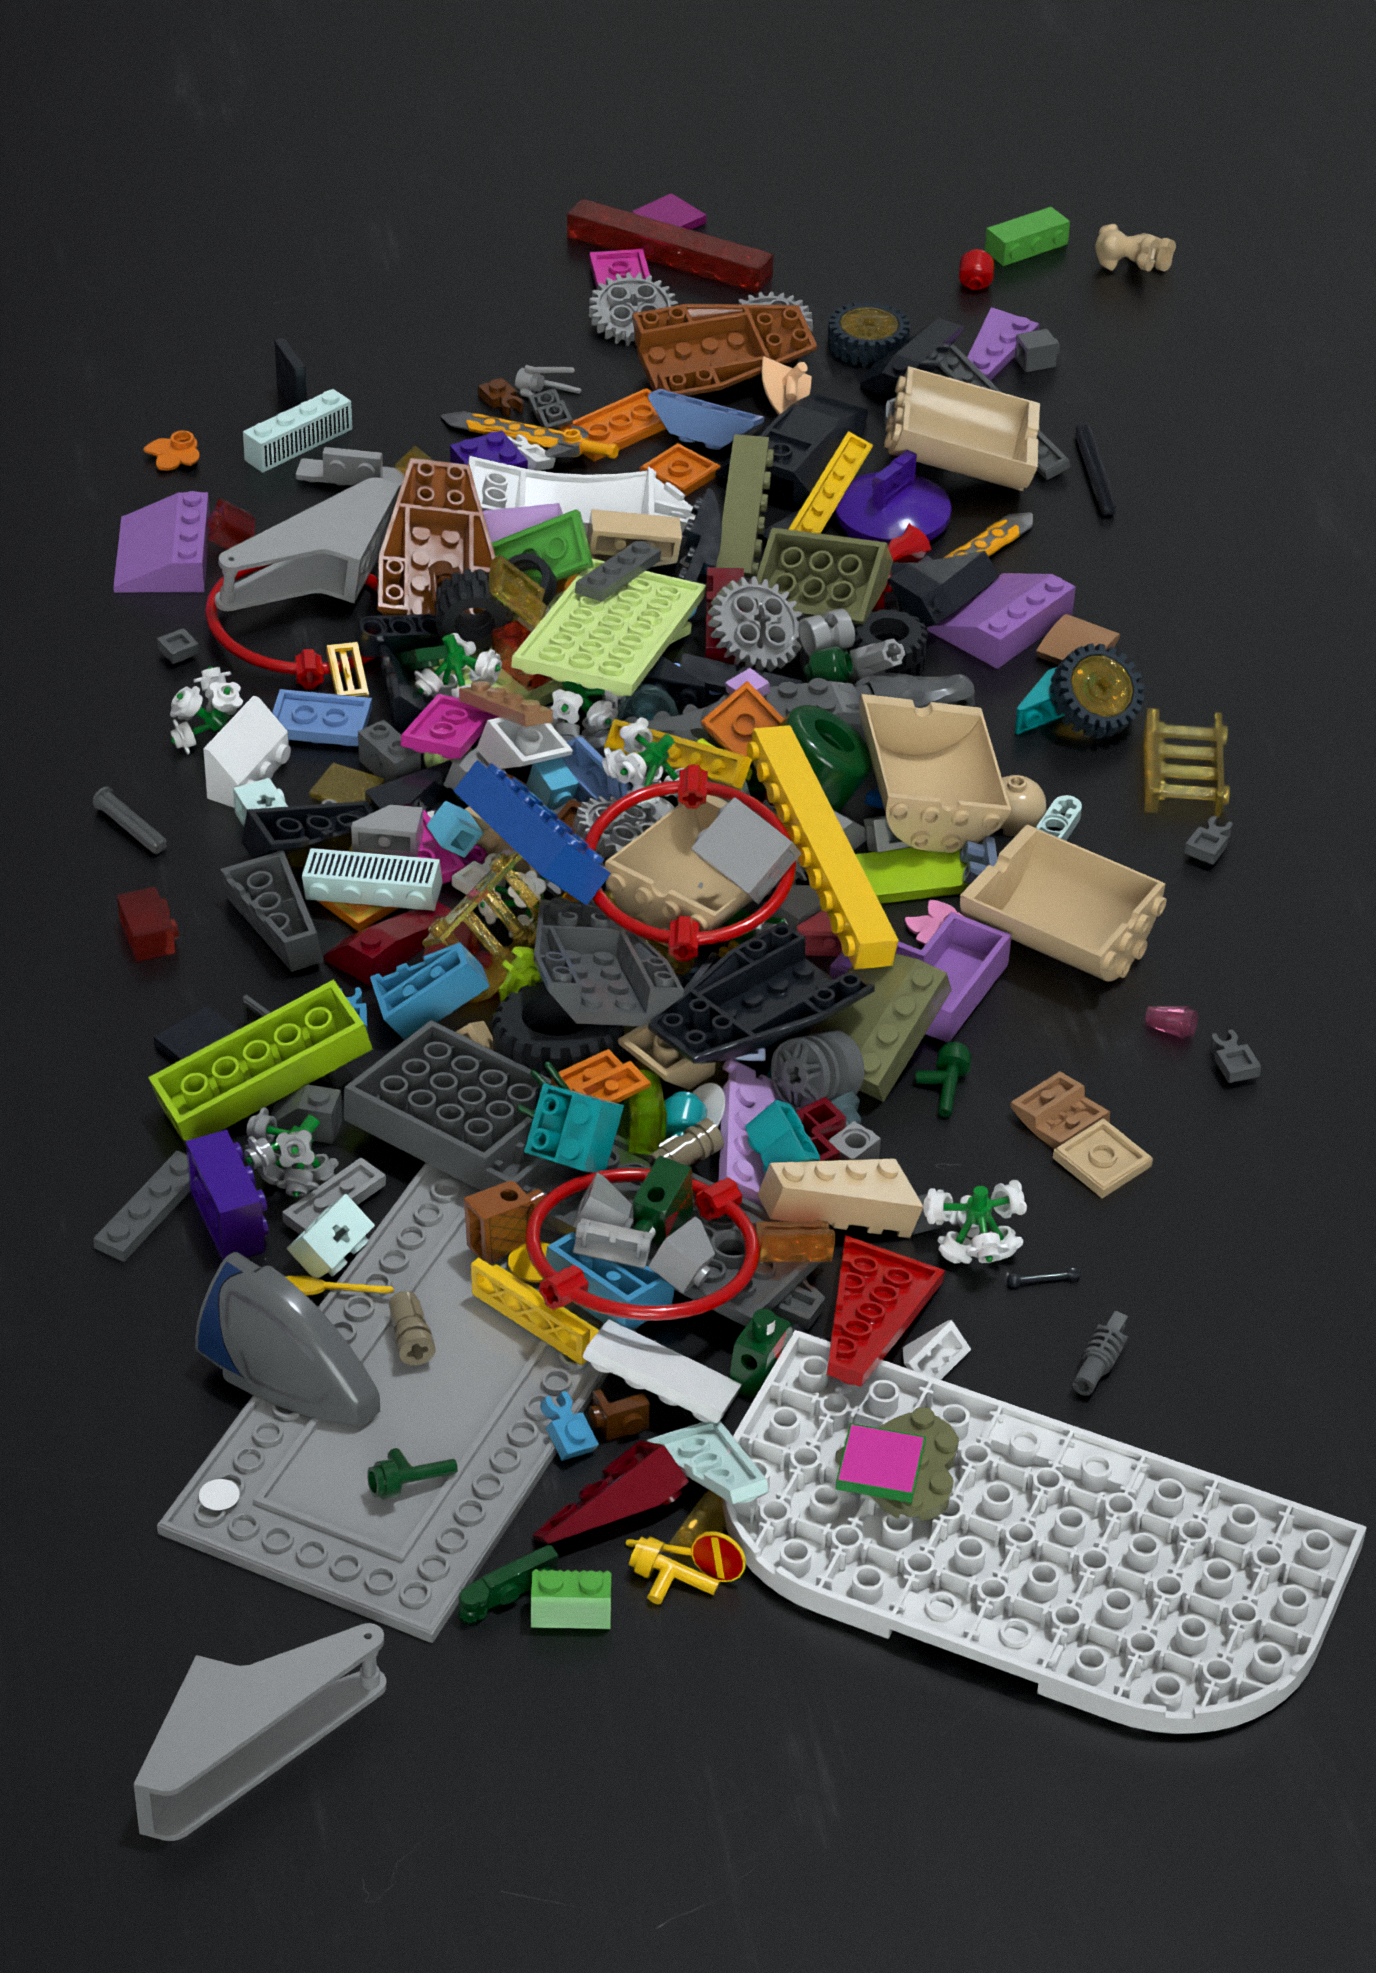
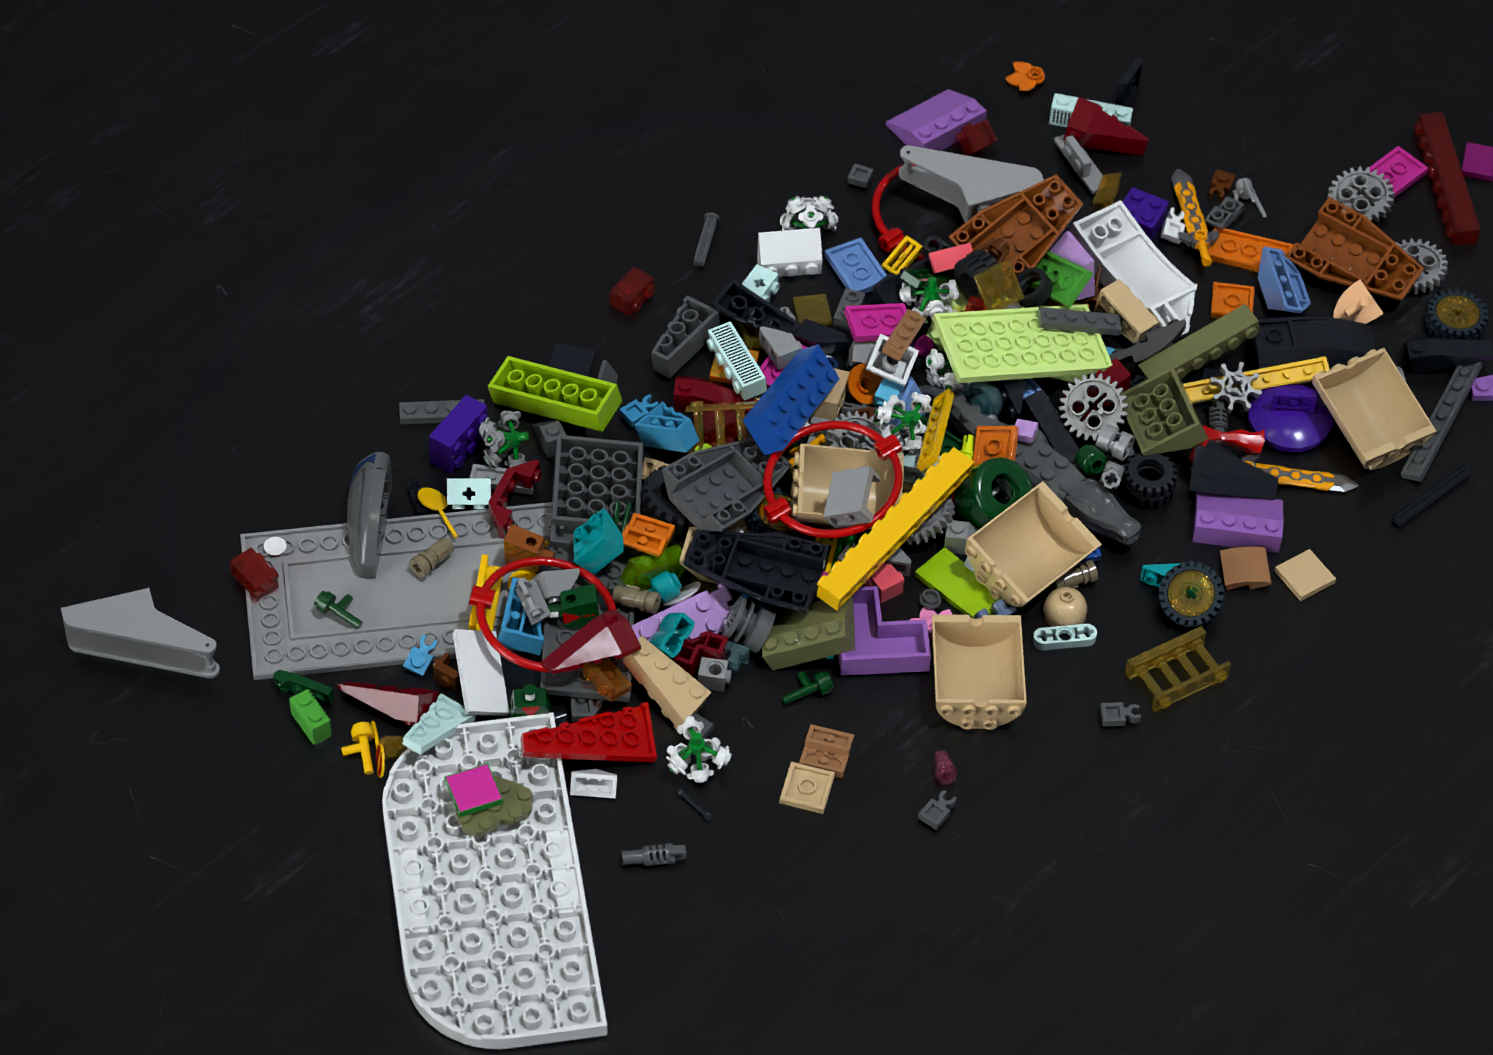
camera: 55 degrees right, 10 degrees up
(259, 1535) = (254, 573): none -> clear red brick
(334, 424) = (1101, 131): none -> dark red wedge
(409, 1224) = (523, 475): none -> dark red slope
(413, 621) = (947, 258): none -> coral slope
(684, 1256) = (548, 635): light grey slope -> none
(753, 1207) = (600, 638): none -> dark red wedge
(825, 513) = (1235, 395): none -> light grey gear
(901, 907) = (930, 599): none -> dark grey plate
(1126, 608) = (1305, 575): none -> tan tile

